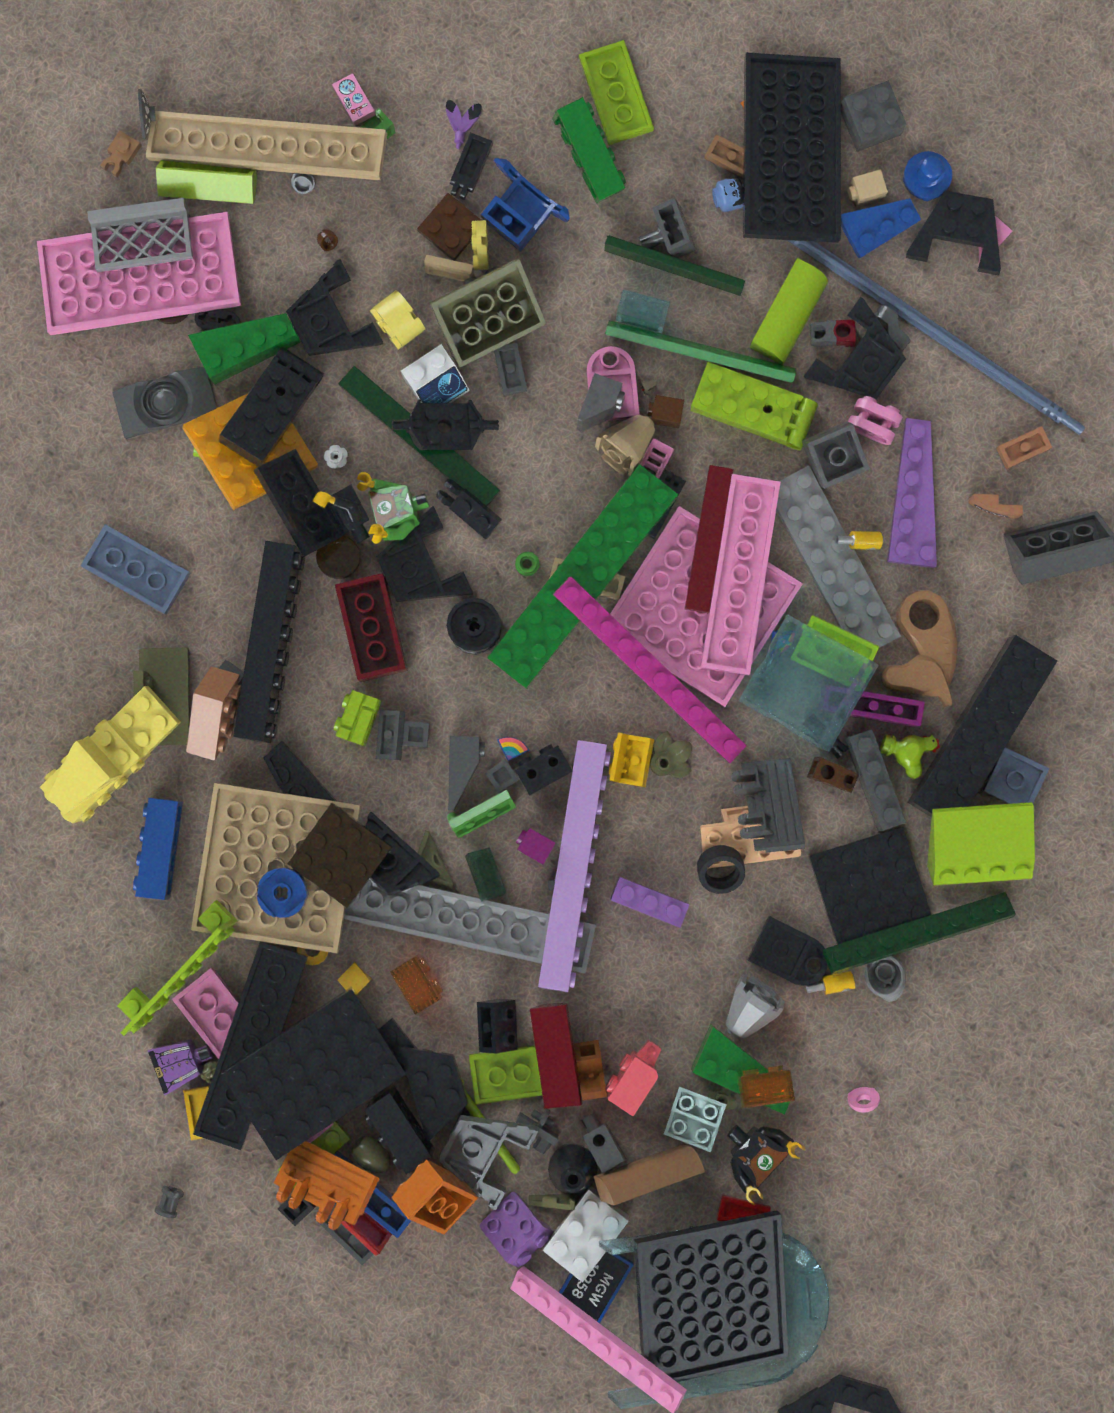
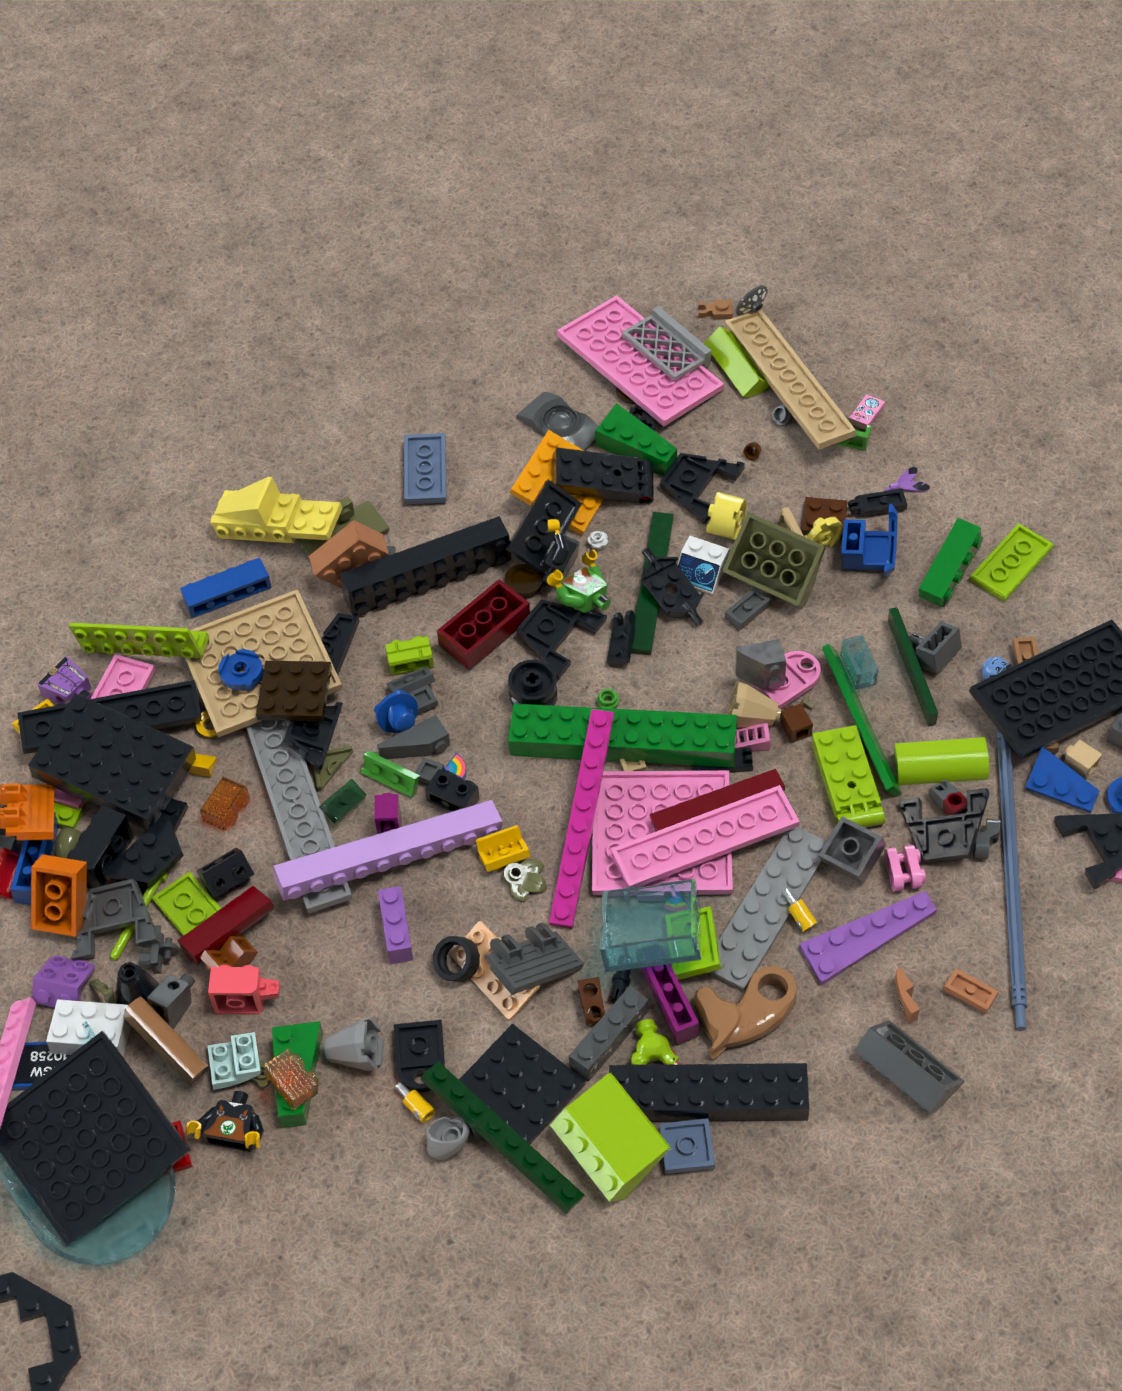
camera: 60 degrees right, 30 degrees down
(425, 770) = (396, 712): none -> blue plate
(861, 1094) = (329, 1181): bright pink piece -> none

